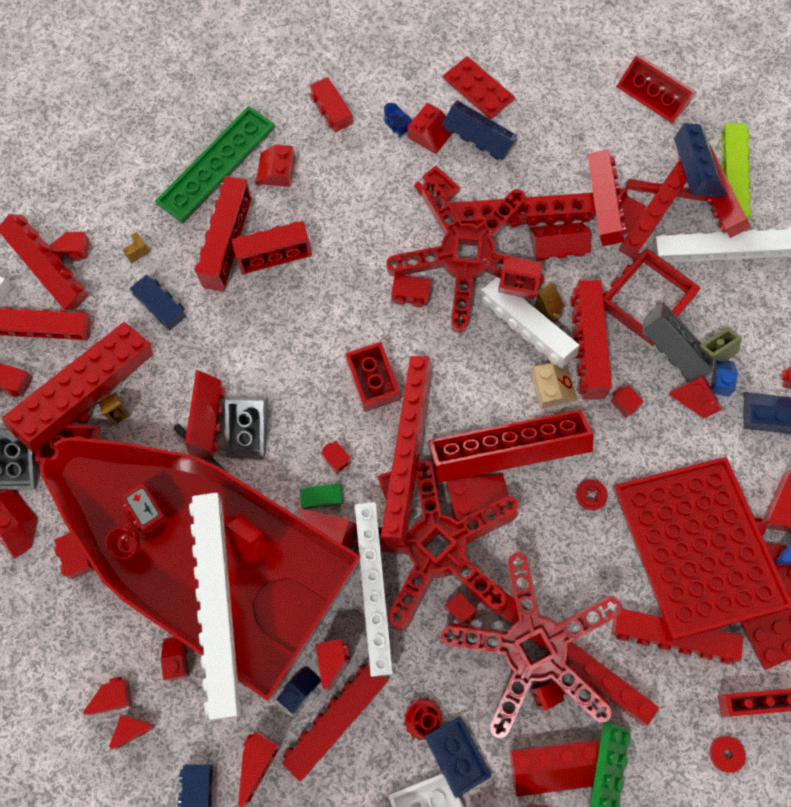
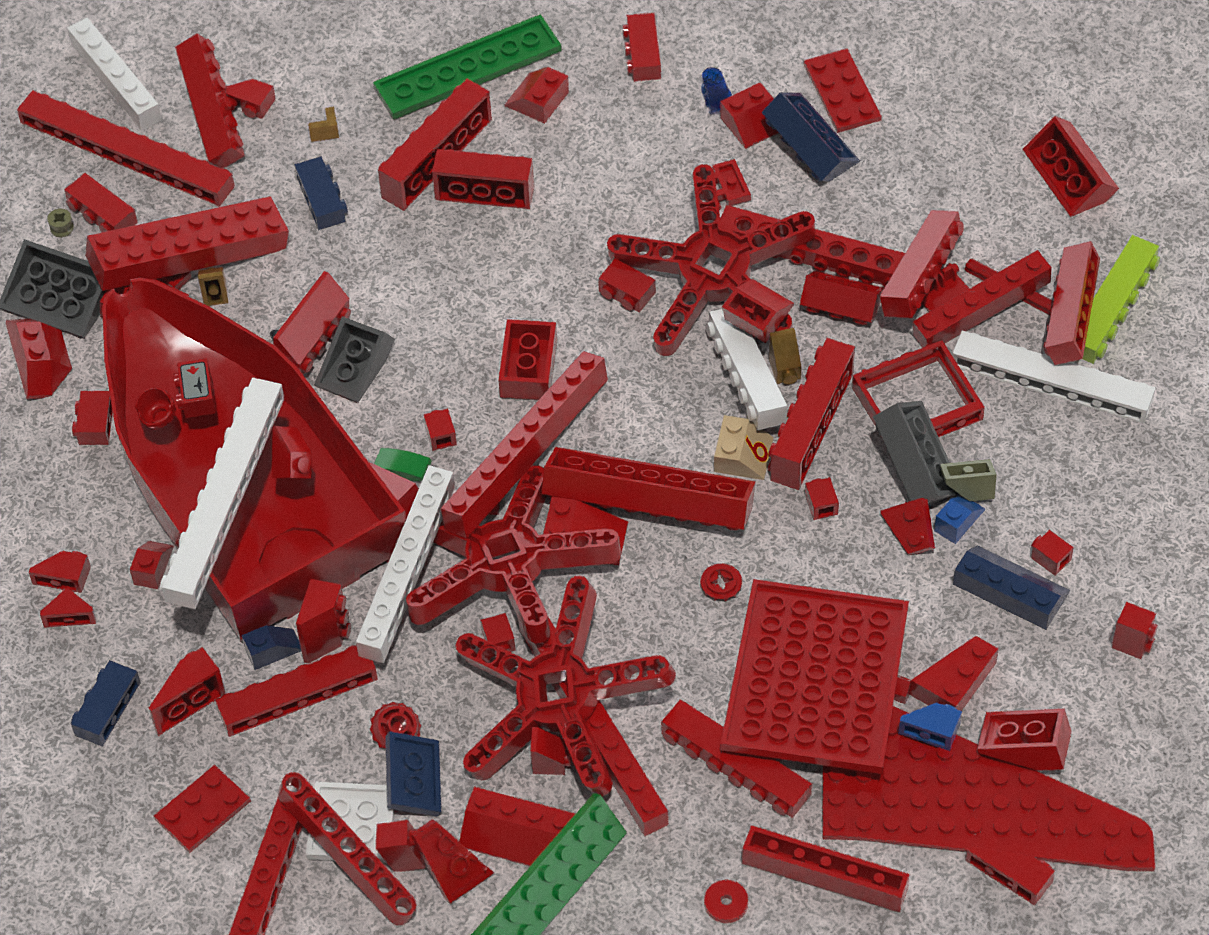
camera: 25 degrees right, 15 degrees down
(698, 161) = (1056, 259): dark blue slope -> none

